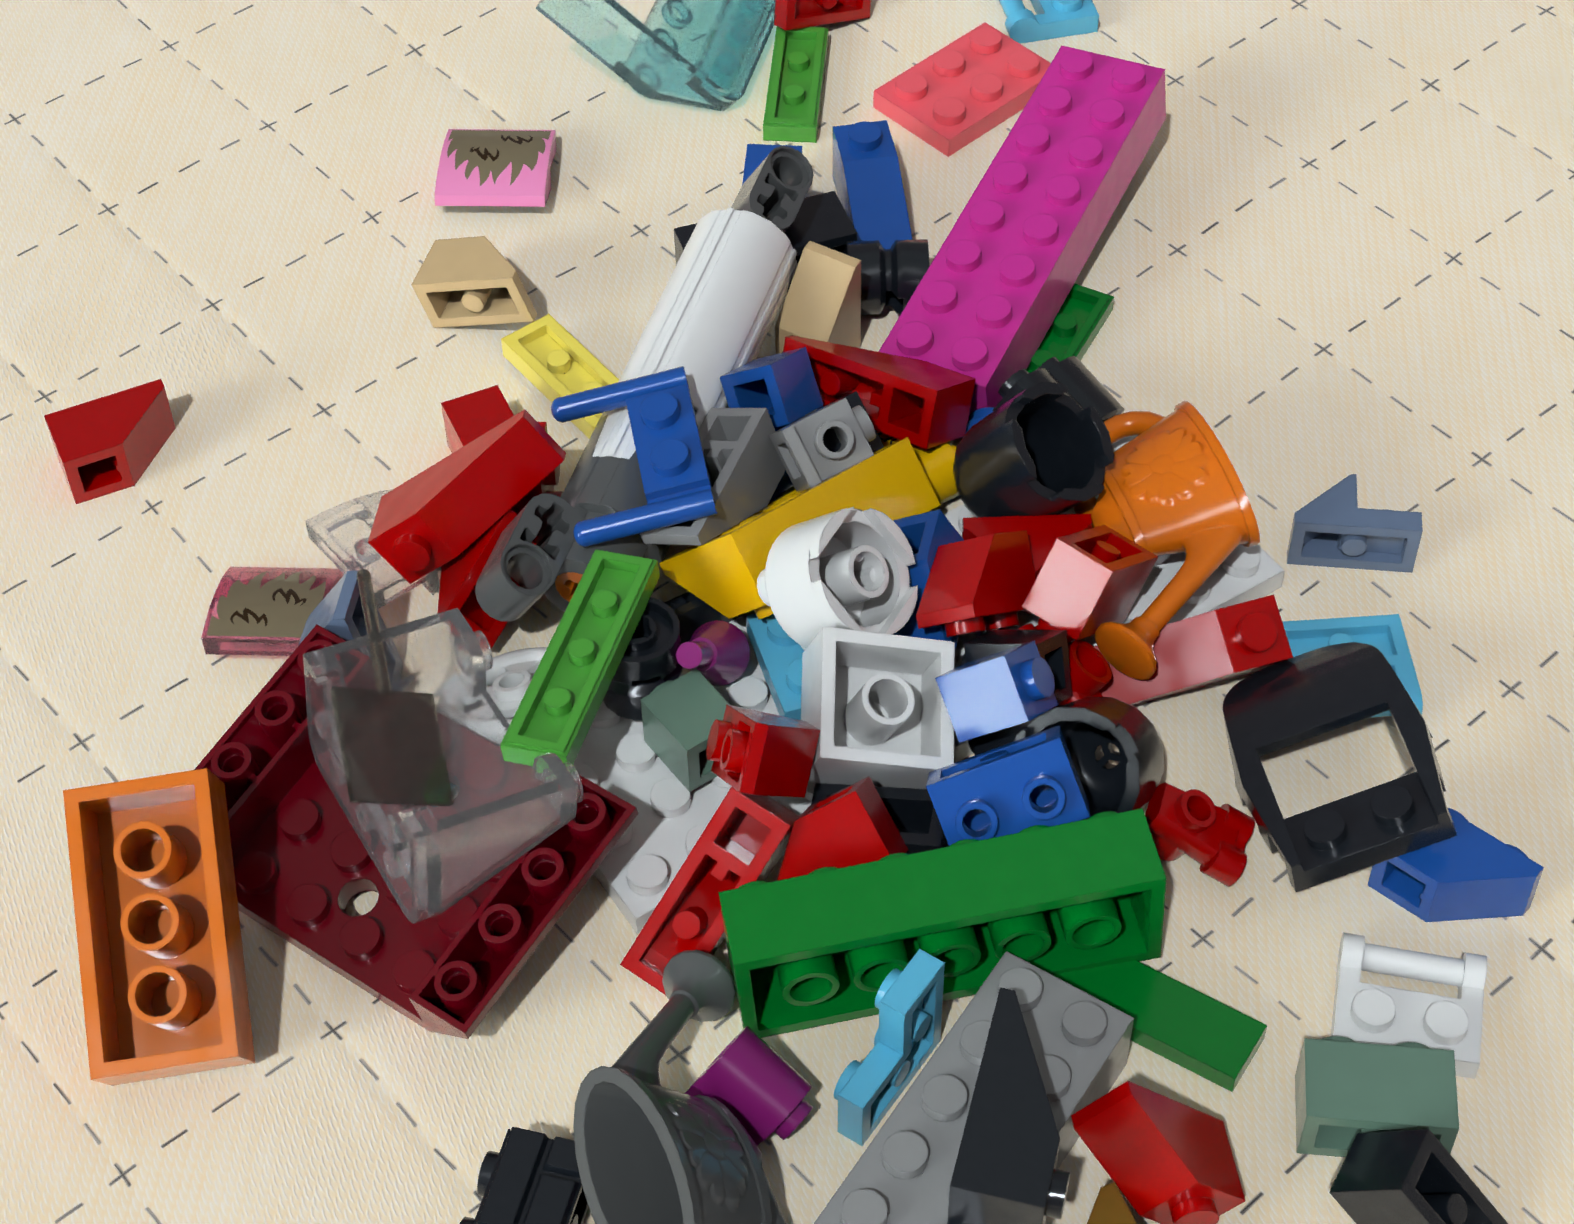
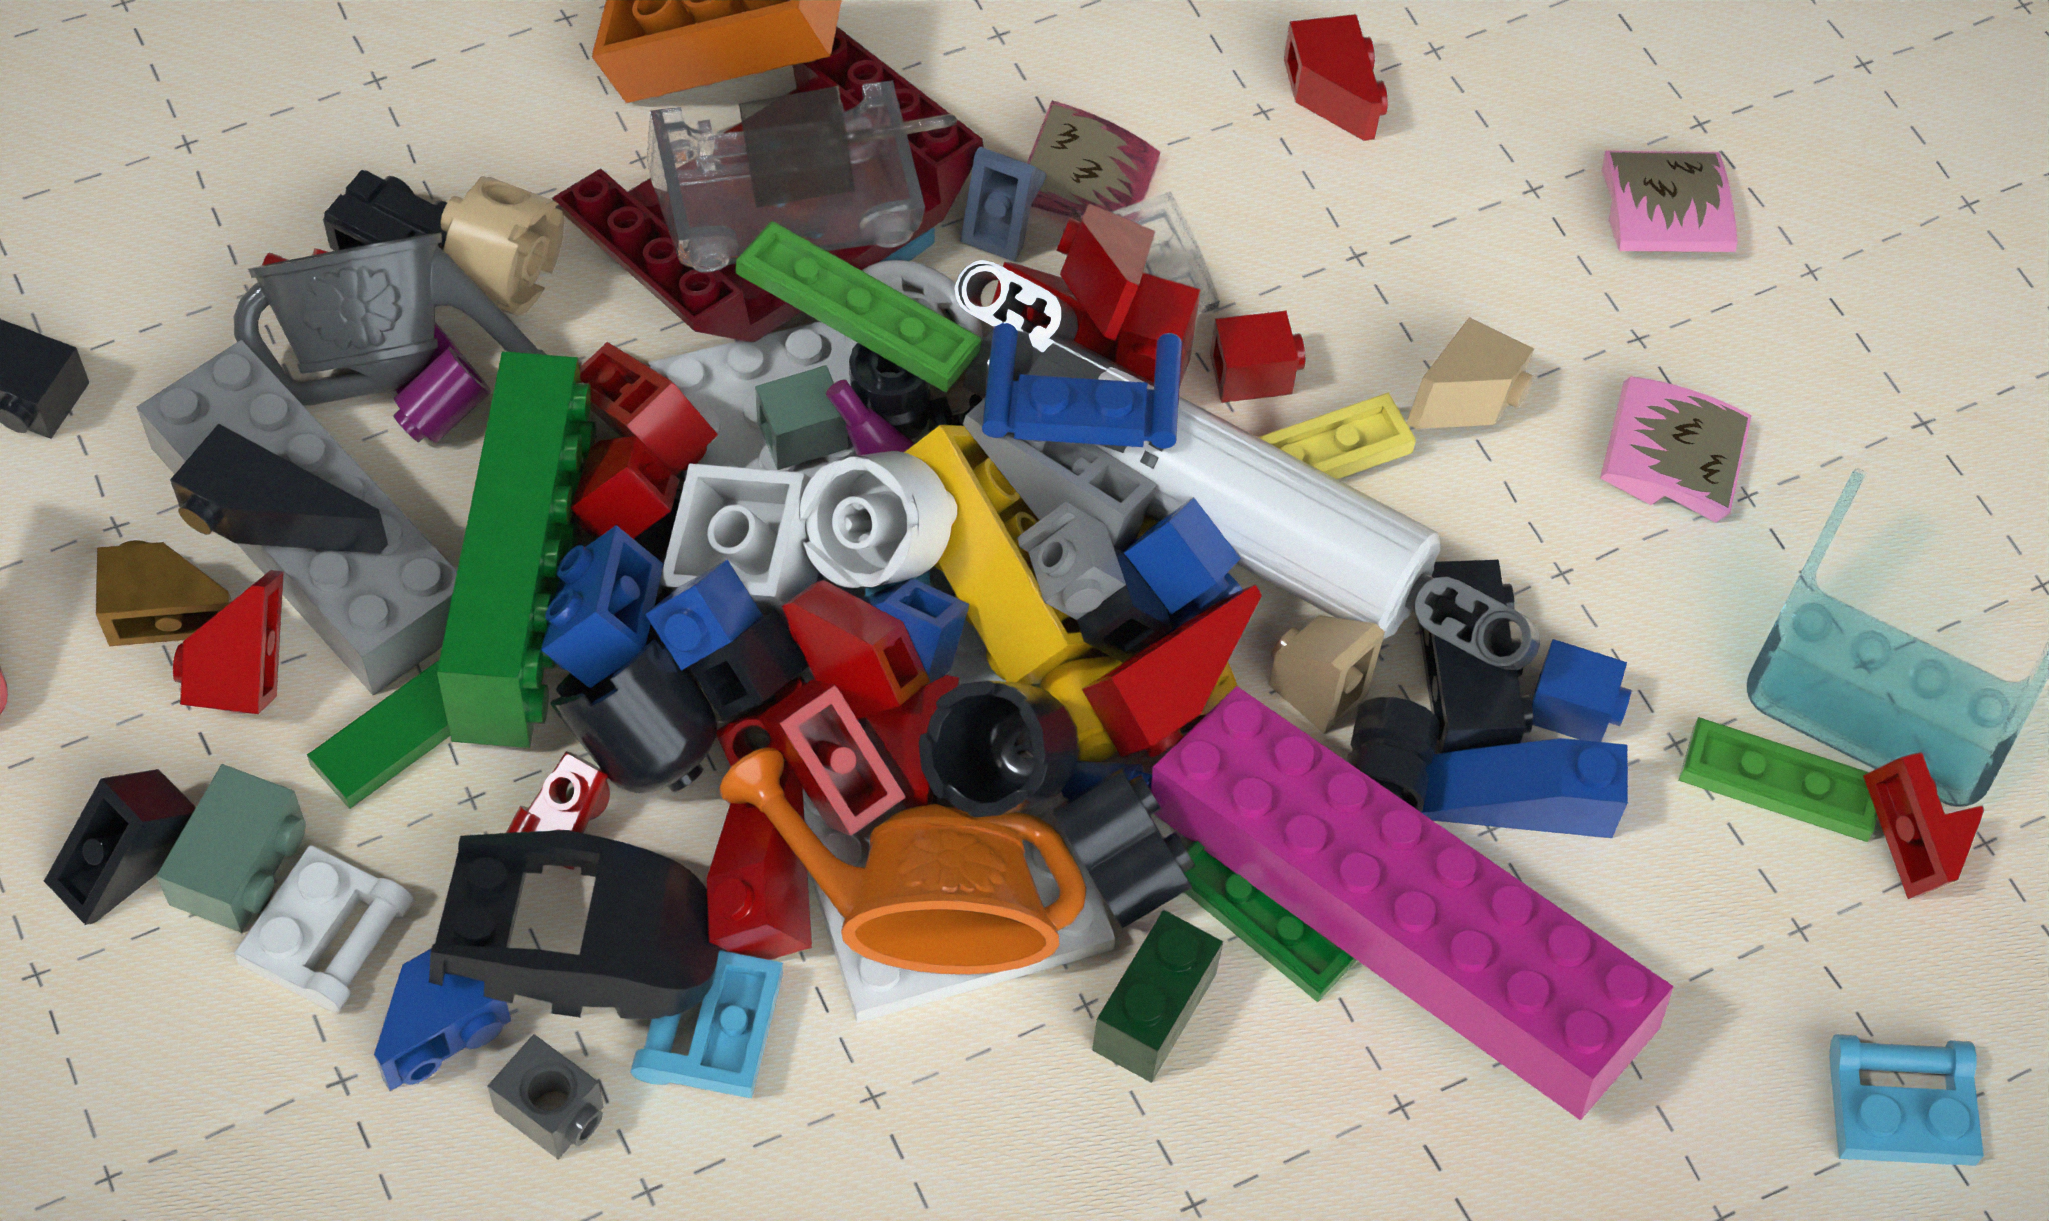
camera: 100 degrees right, 10 degrees up
(218, 200) = (1670, 201): none -> slope
(531, 1064) = (504, 240): none -> tan brick
(762, 752) = (710, 421): red slope -> none
(906, 1037) = (427, 490): medium azure plate -> none
(963, 89) = (1737, 960): coral plate -> none
(1168, 366) = (1157, 996): none -> dark green brick
(1341, 535) = (886, 1085): sand blue slope -> none
(1485, 759) = (541, 1070): none -> dark grey brick

